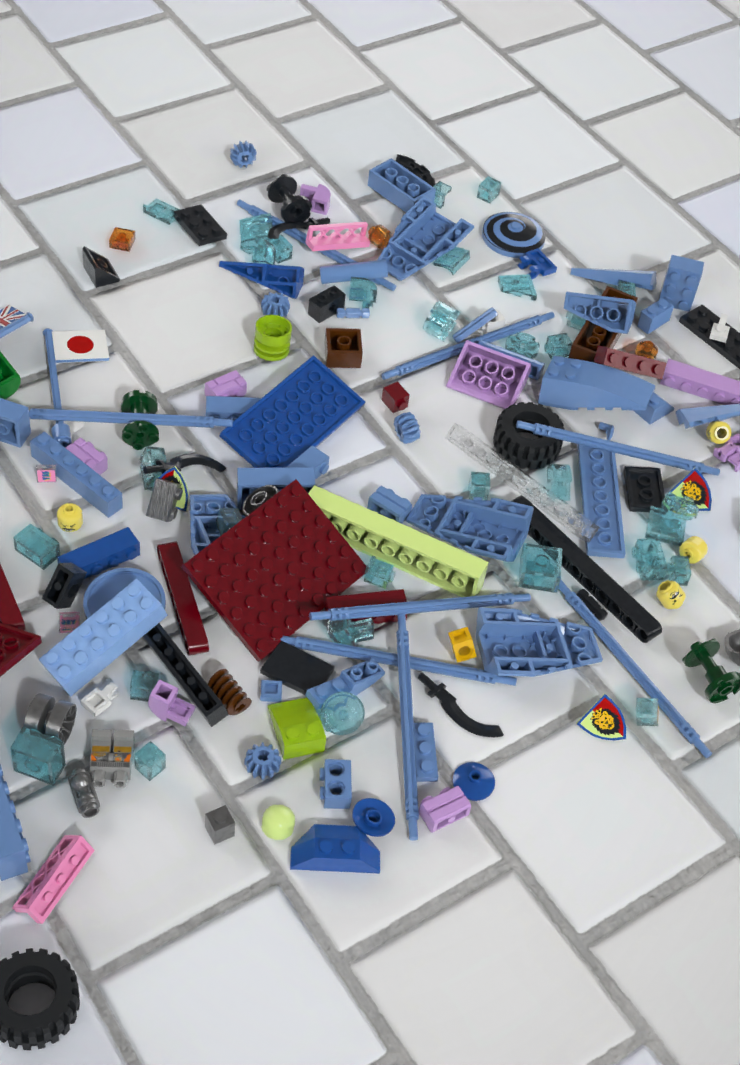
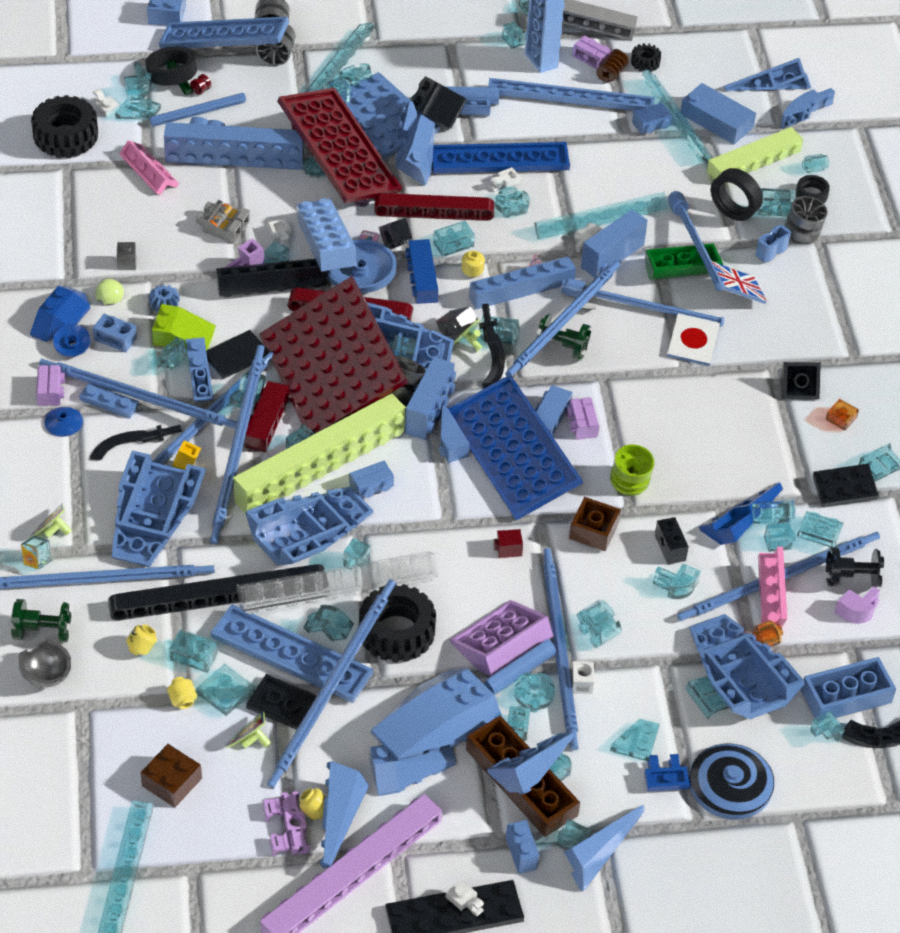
camera: 120 degrees right, 0 degrees up
(38, 755) = (245, 177): clear light blue brick -> none
(51, 717) = (272, 190): flat silver wheel -> none
(87, 802) = (195, 197): flat silver piece -> none
(89, 455) = (539, 296): lavender brick -> none
(150, 761) = (205, 237): clear light blue brick -> none
(229, 693) = (236, 299): reddish brown piece -> none
(271, 690) = (227, 331): medium blue tile -> none
(275, 231) = (813, 560): black sword -> none
(275, 304) = (688, 499): medium blue gear -> none
(344, 272) = (707, 578): medium blue brick -> none
(353, 313) = (654, 562): medium blue axle -> none
(407, 428) = (458, 528): medium blue gear -> none
(474, 325) = (578, 650): medium blue axle -> none
(489, 189) = (820, 788): clear light blue brick -> none
(540, 567) = (232, 551): clear light blue brick -> none
(592, 604) = (173, 580): black axle -> none
(608, 428) = (375, 710): medium blue bar -> none
(630, 362) = (447, 758): brick -> none
(646, 349) = (466, 800): clear orange head -> none
(679, 570) = (166, 667): clear light blue brick -> none
(681, 282) = (550, 881): medium blue brick -> none
(682, 507) = (237, 717): clear light blue plate -> none

